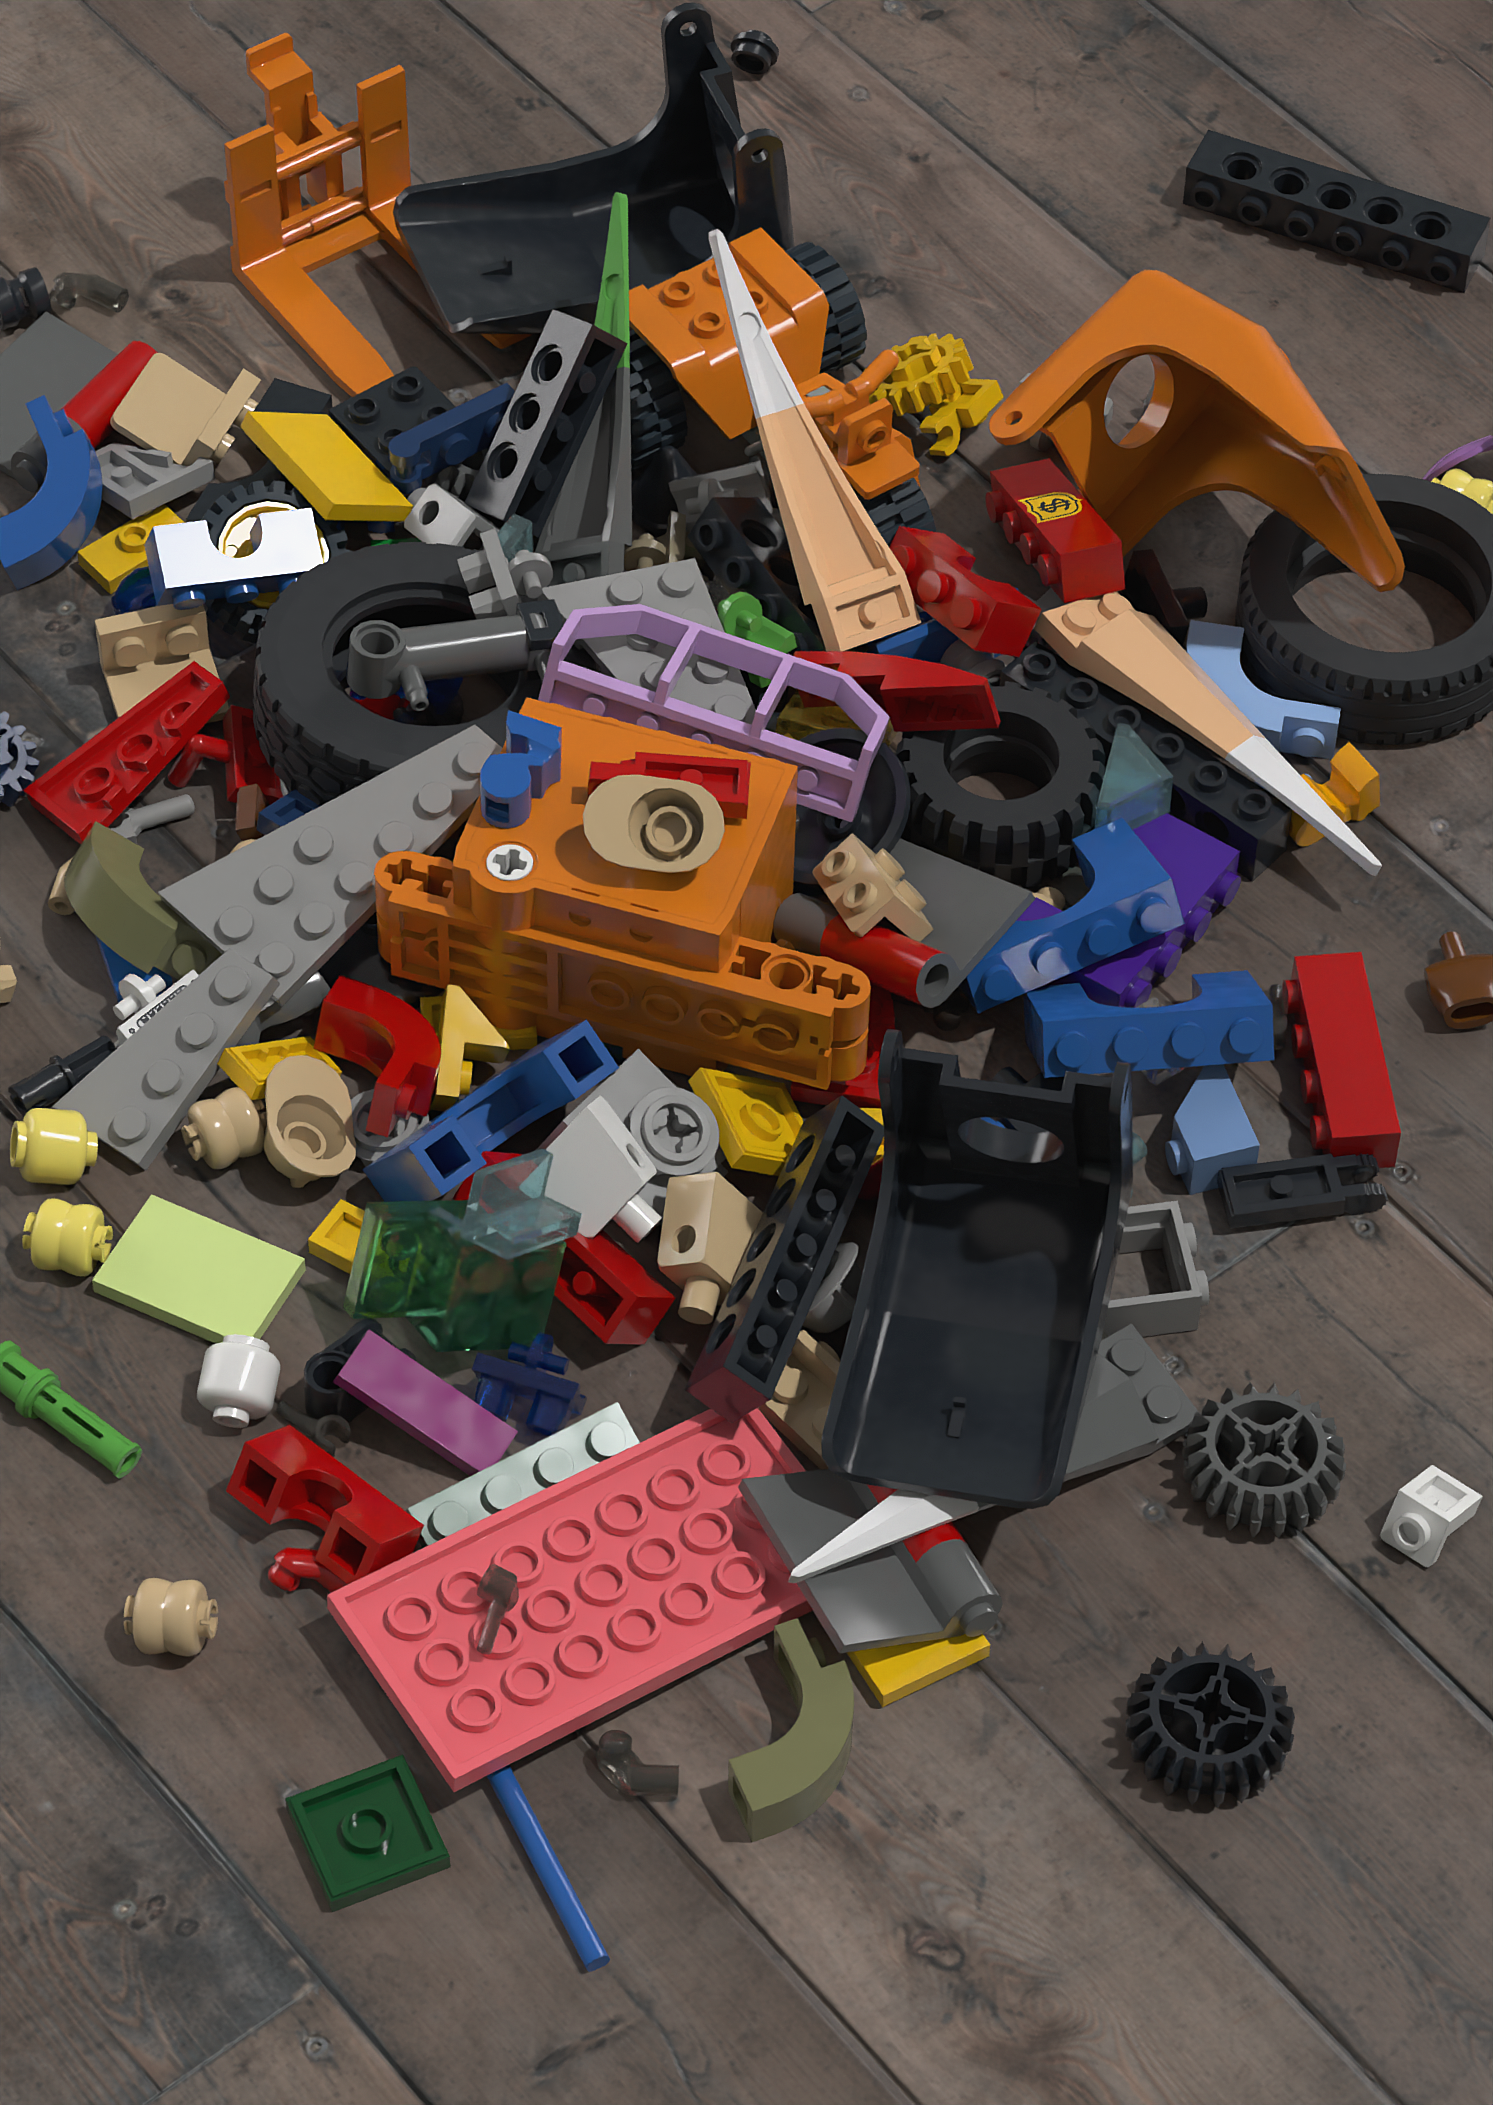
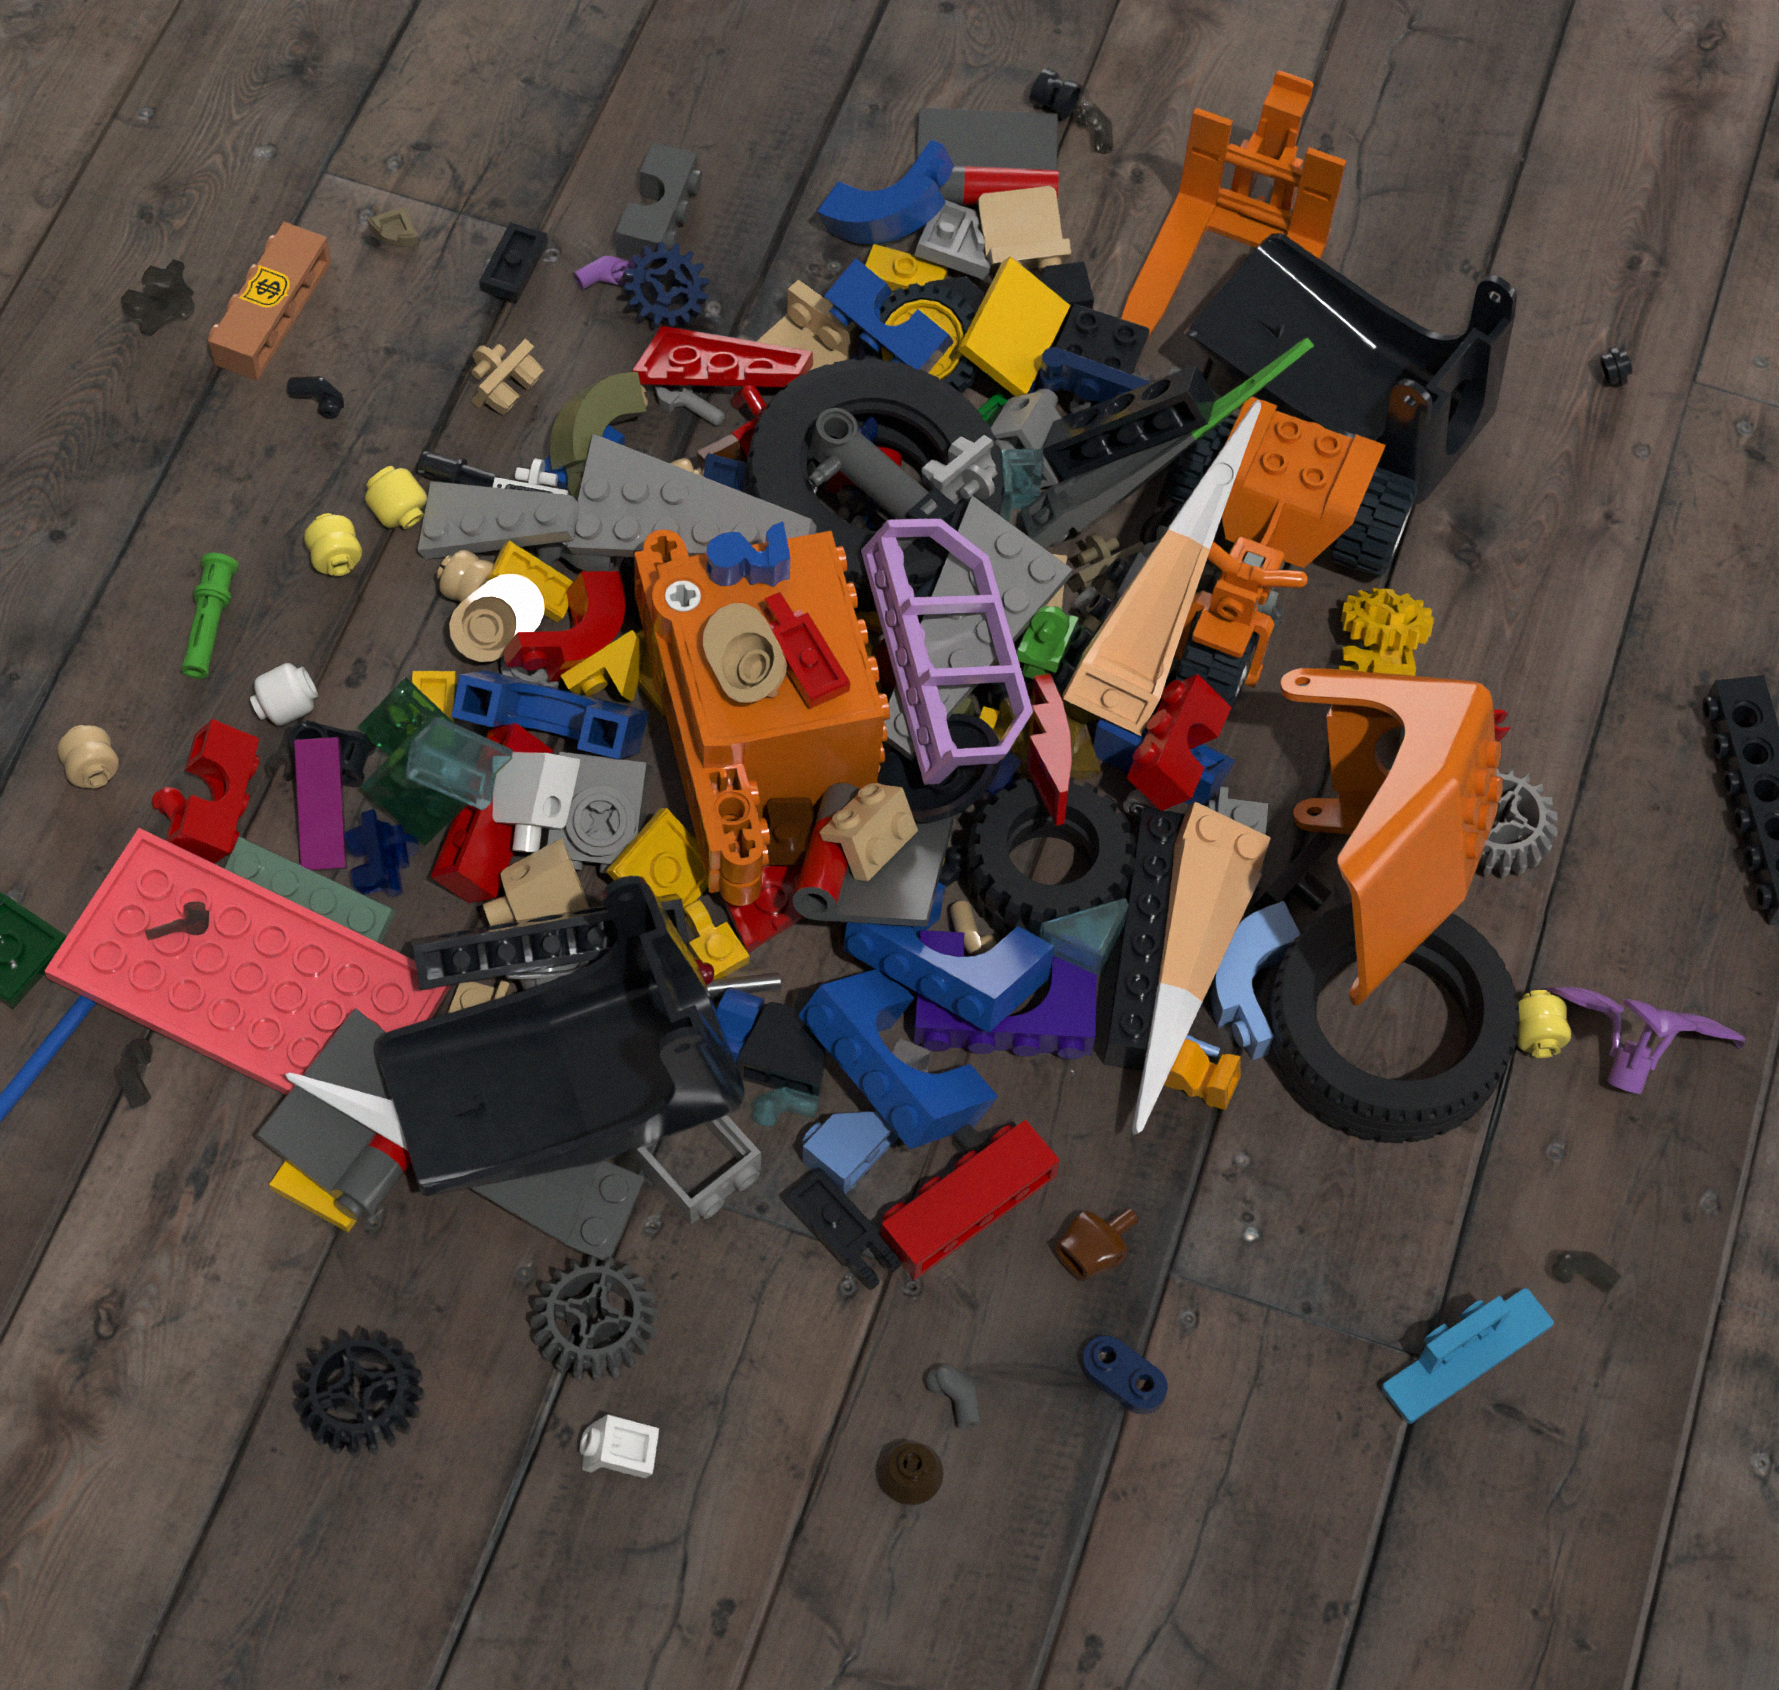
camera: 55 degrees right, 10 degrees up
(198, 1273) = (358, 631): yellowish green tile -> none
(802, 1769) = (203, 1165): olive arch -> none
(1056, 530) = (1283, 782): red brick -> none

